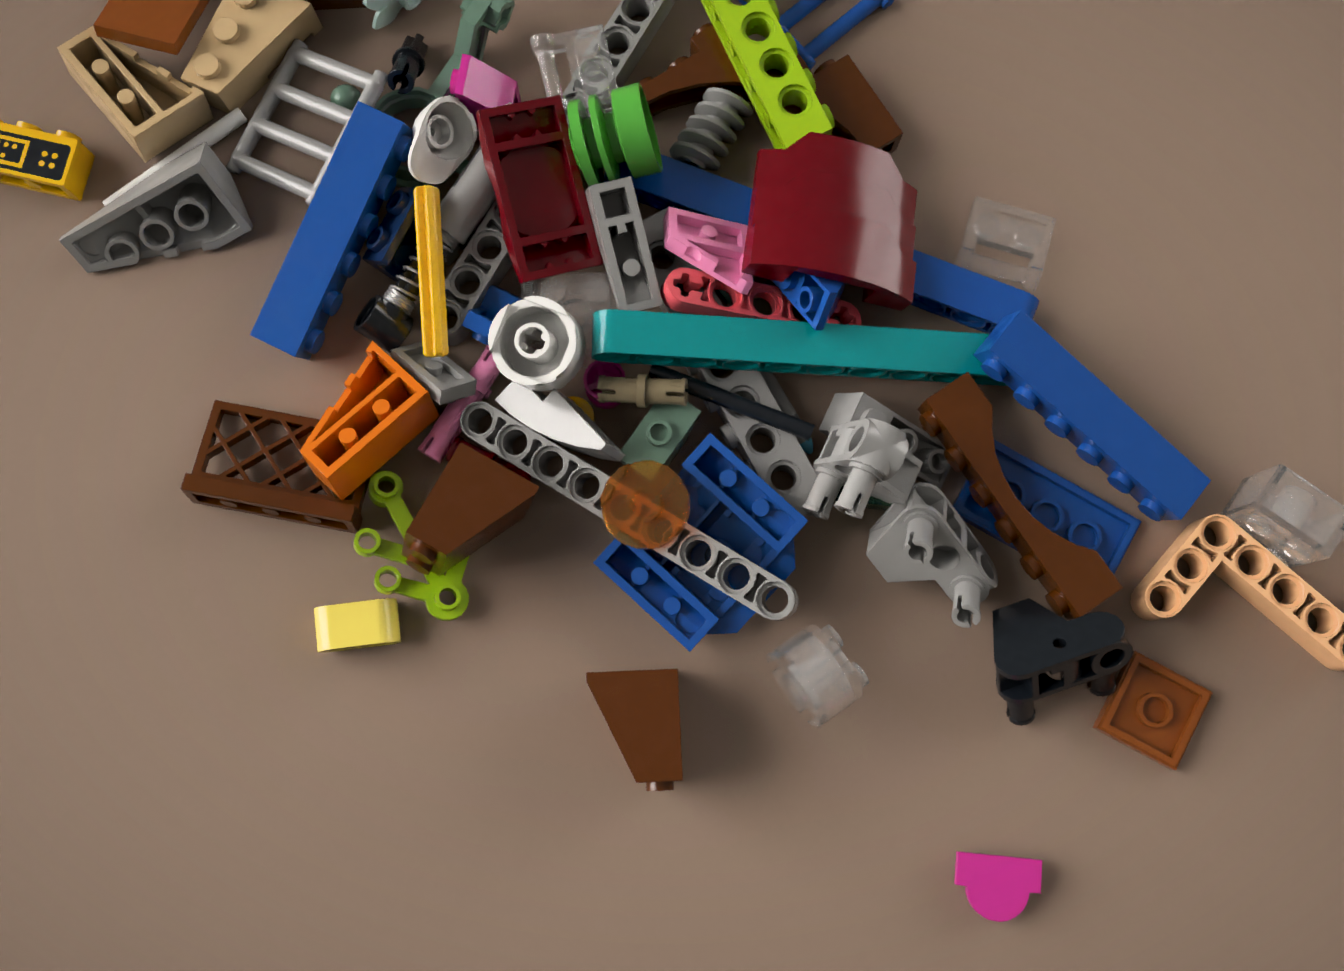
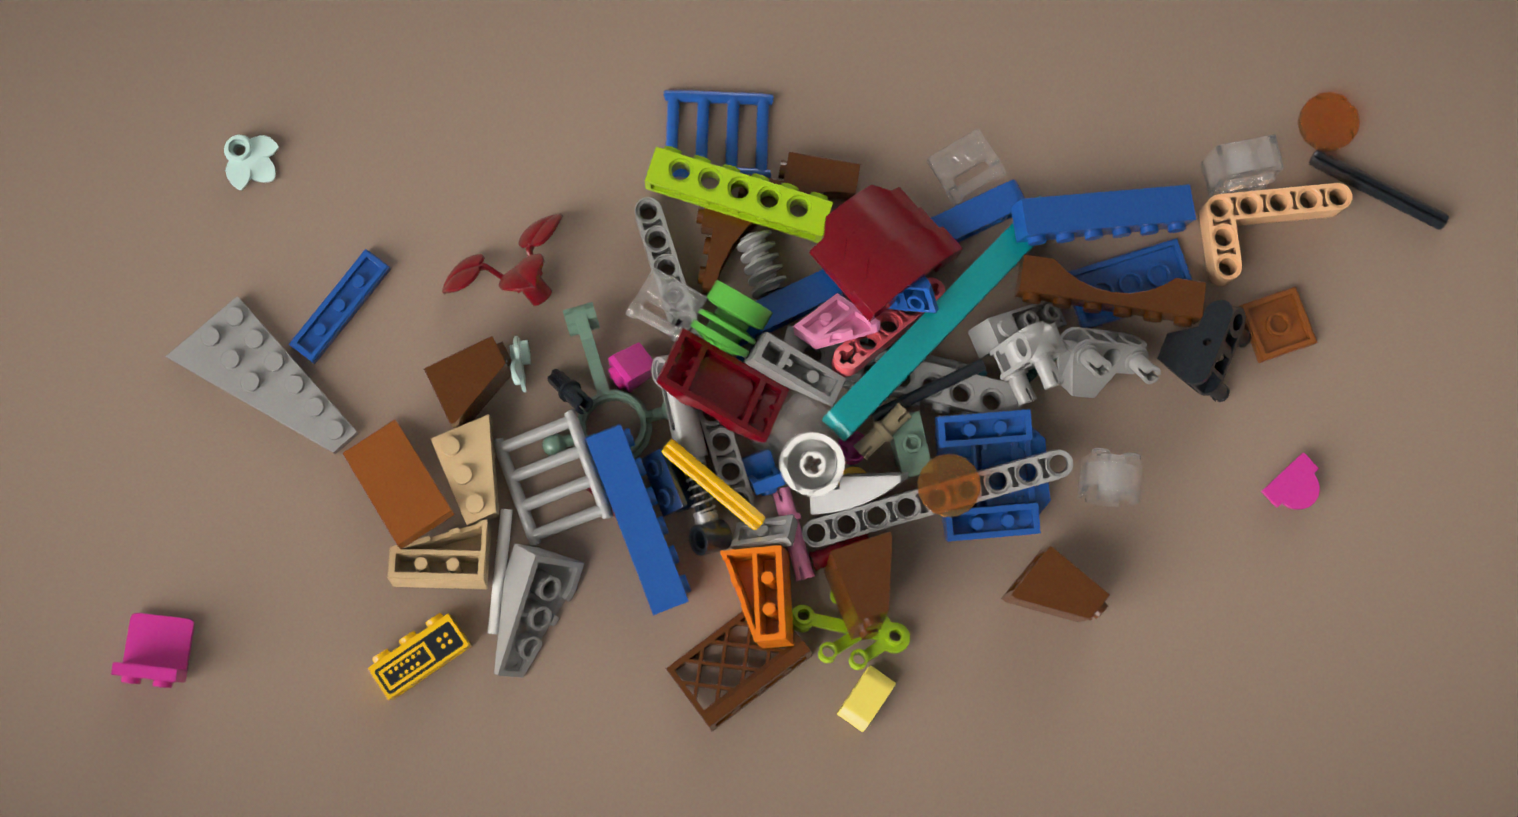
camera: 55 degrees left, 0 degrees up
(441, 140) = (642, 413): white cap -> none

